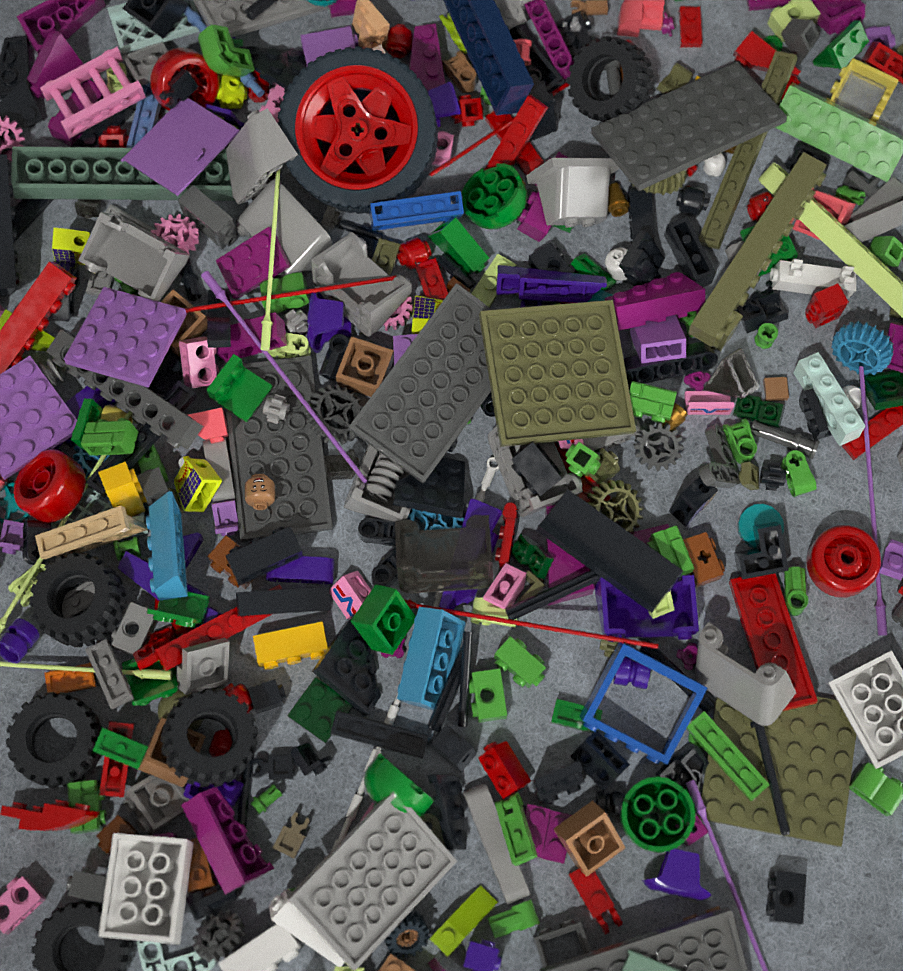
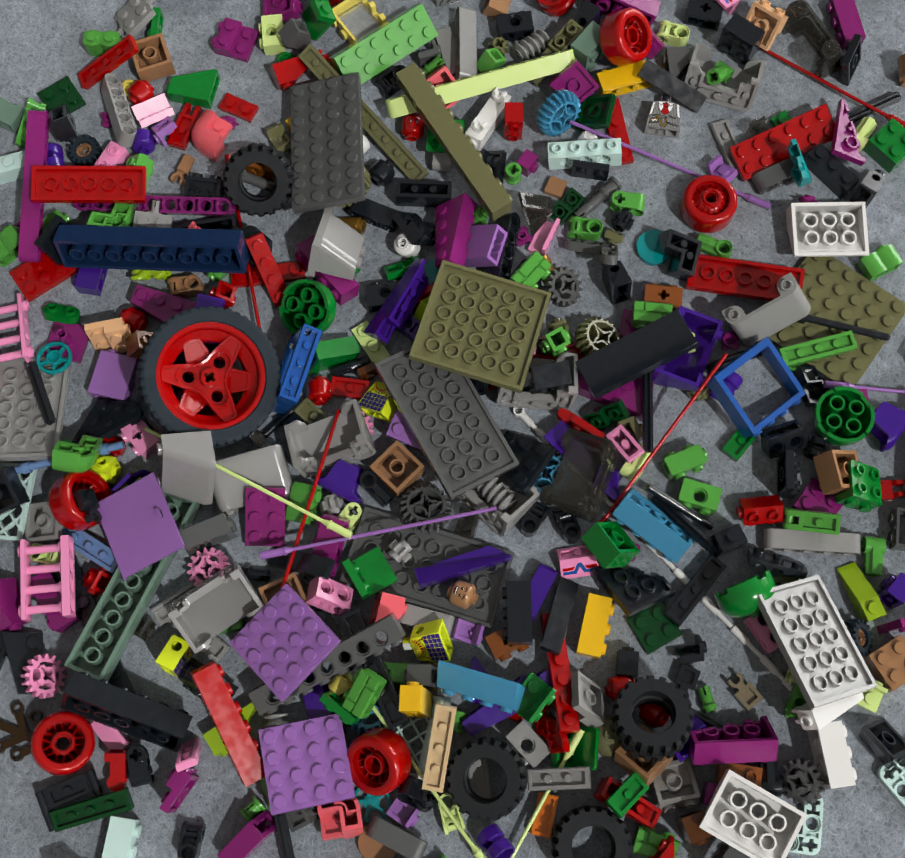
camera: 60 degrees left, 0 degrees up
(289, 476) = (460, 566): none -> dark purple wedge
(584, 871) = (864, 488): none -> green bracket
(786, 345) = (528, 163): none -> magenta plate

